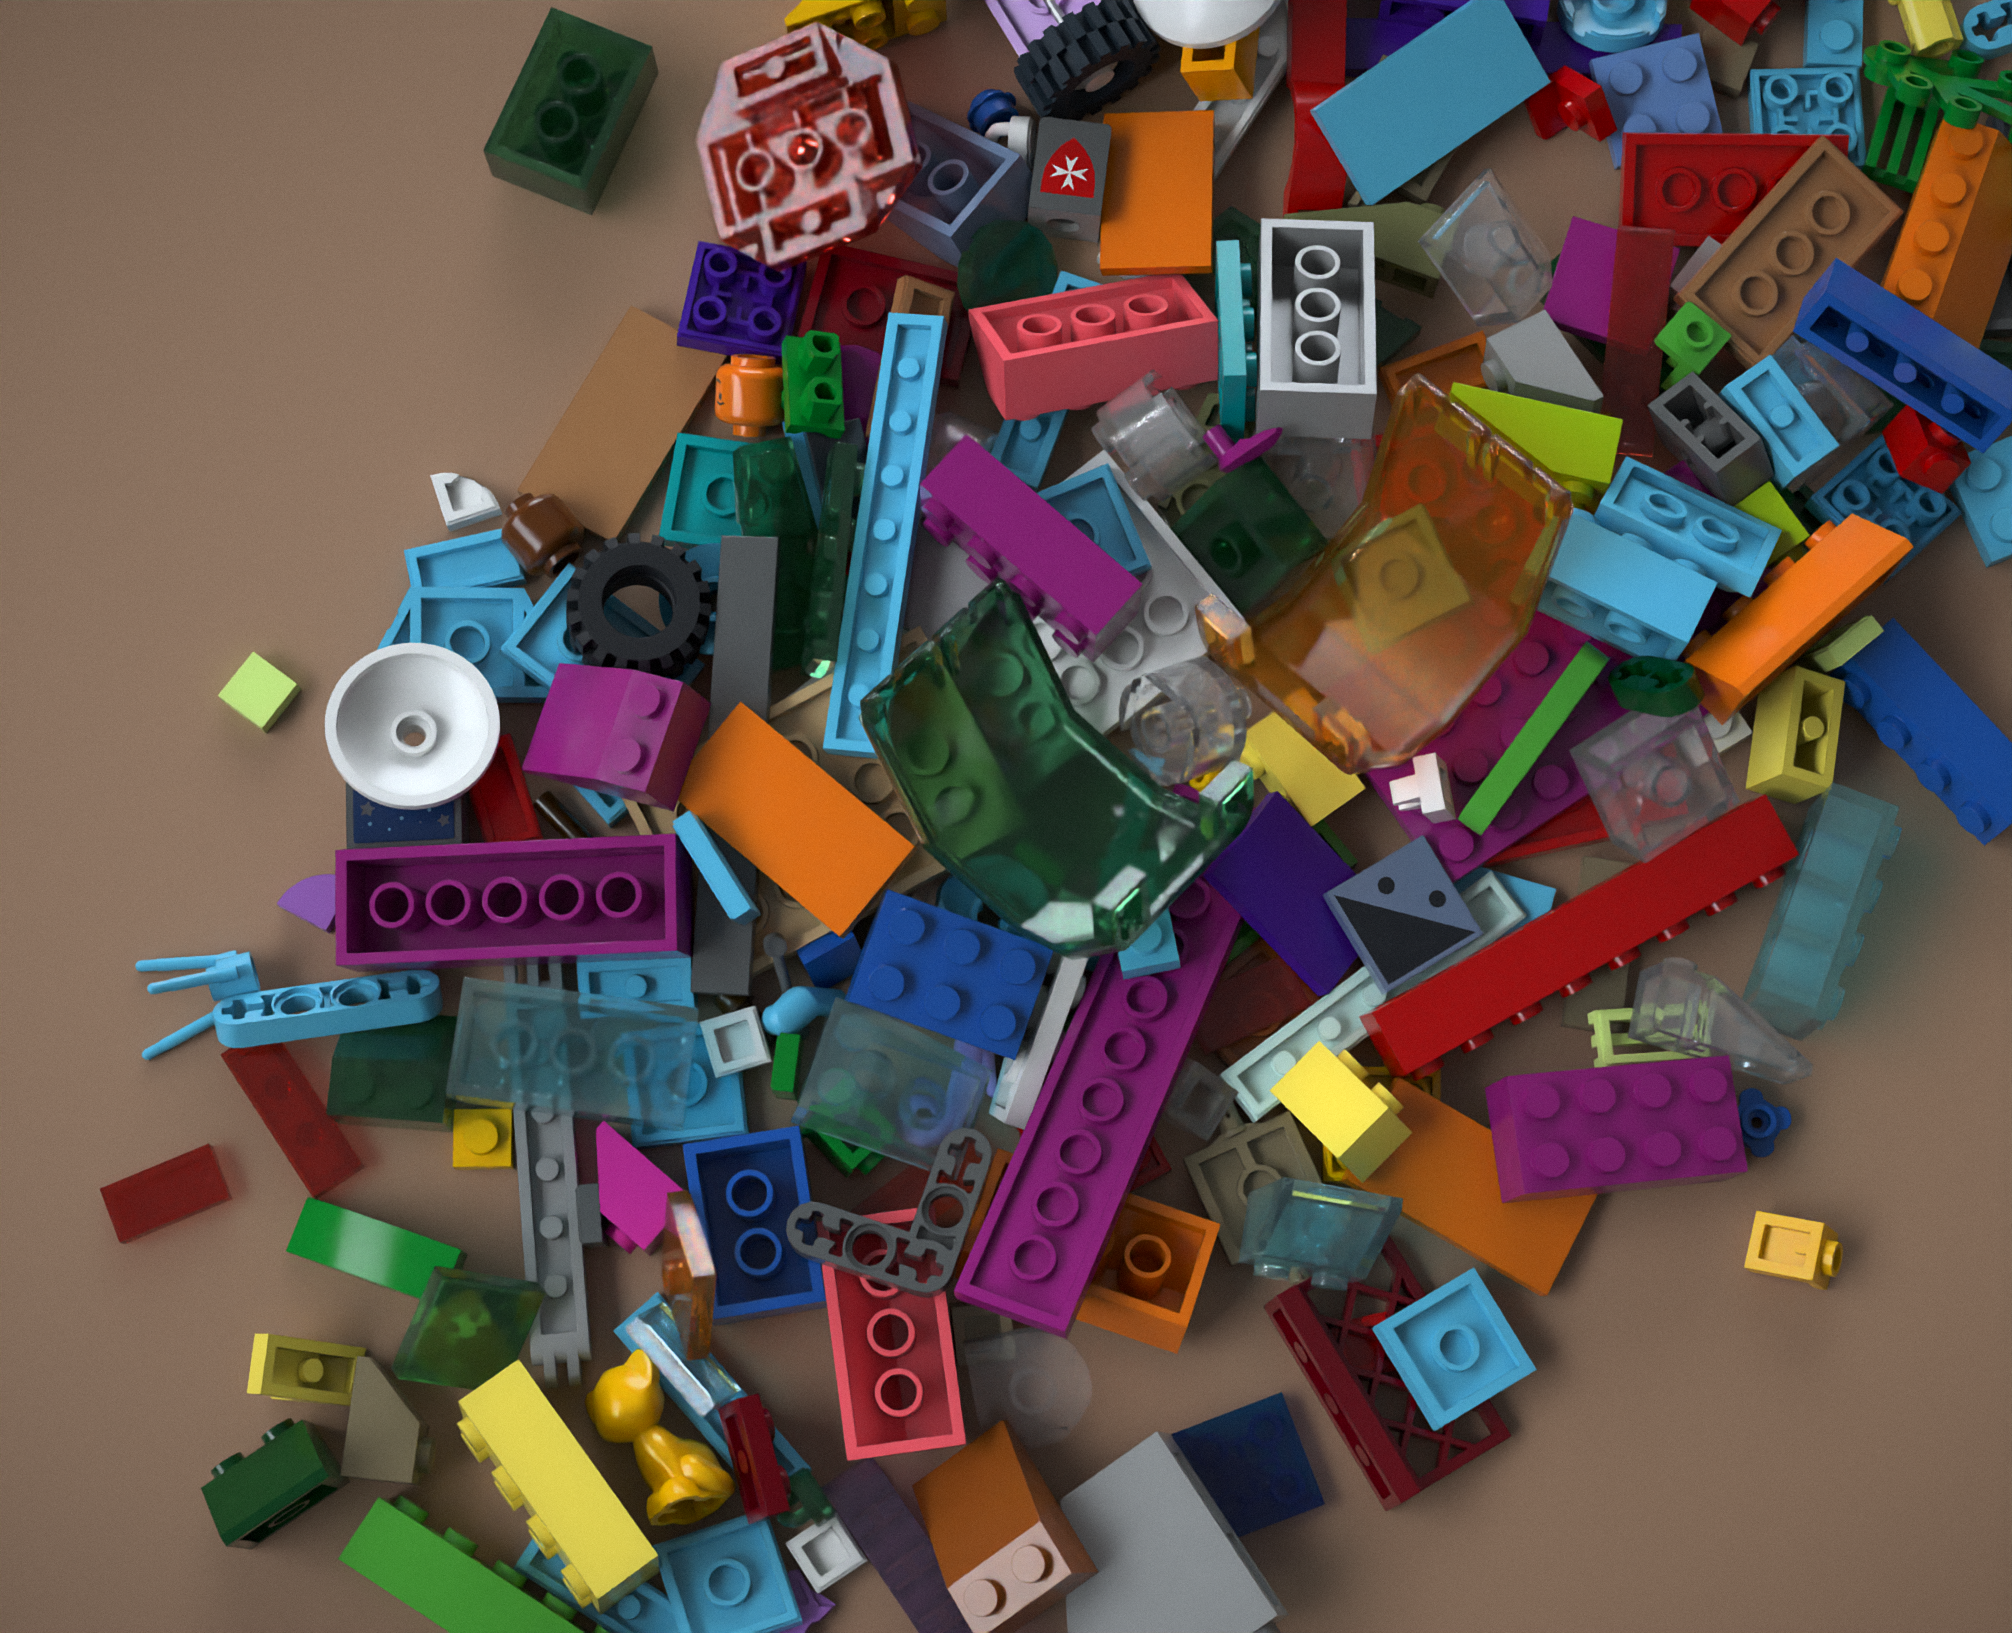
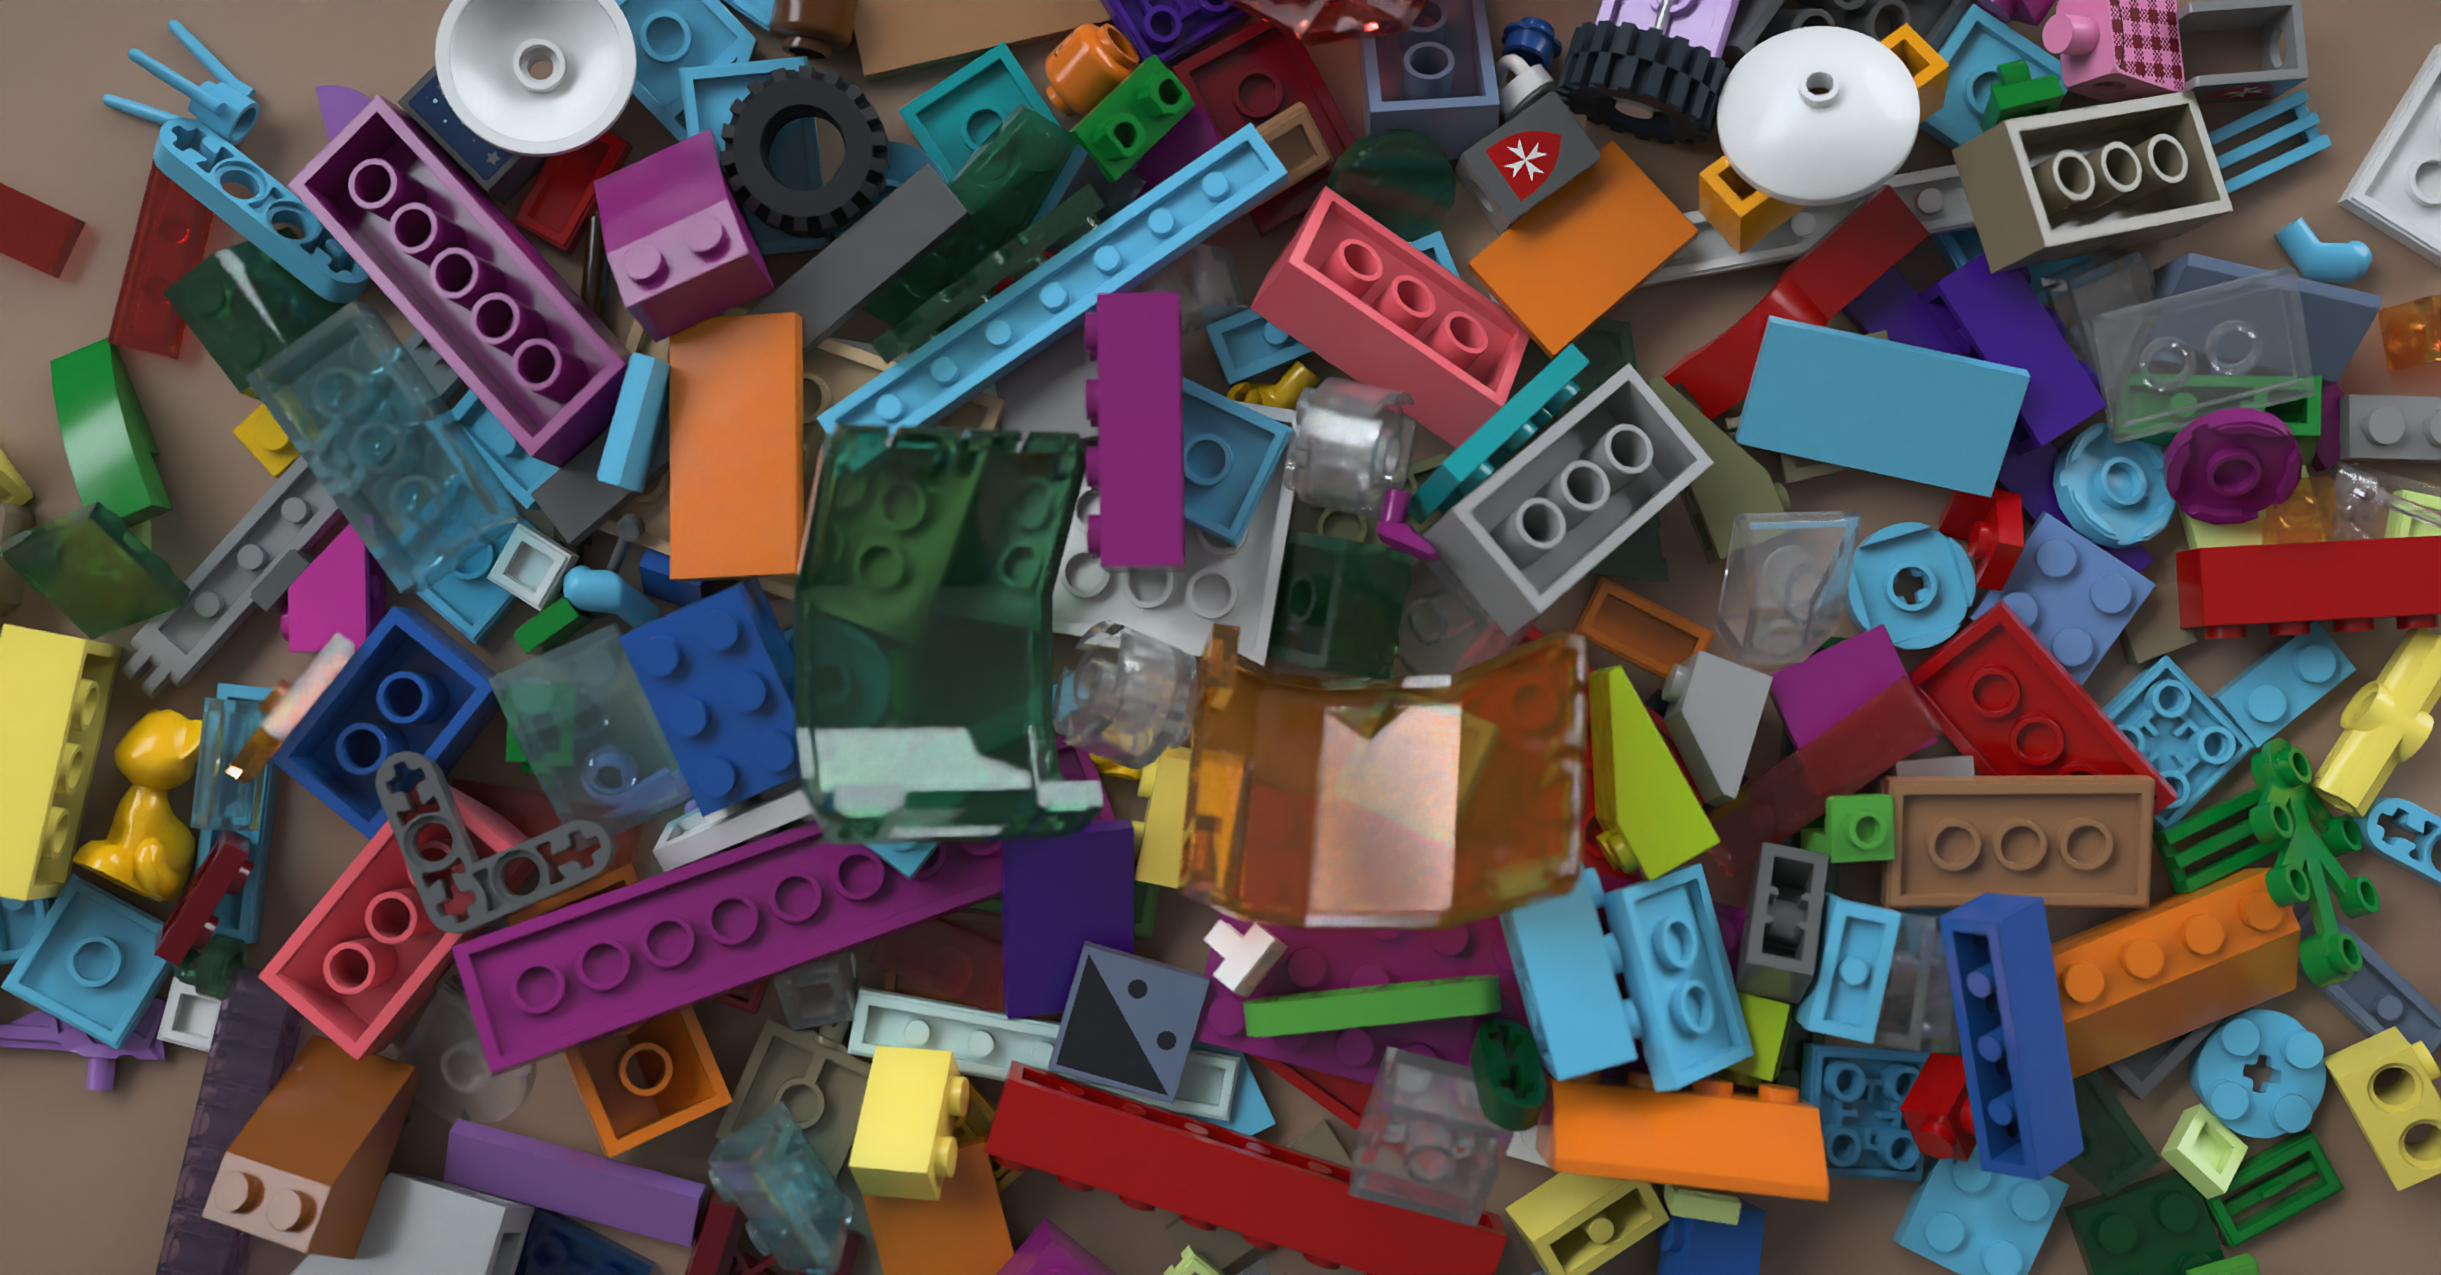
camera: 45 degrees right, 10 degrees up
(1074, 455) = (1281, 394): none -> yellow arm
(1179, 1388) = (574, 1182): none -> medium lavender tile
(1549, 158) = (1924, 554): none -> medium azure plate

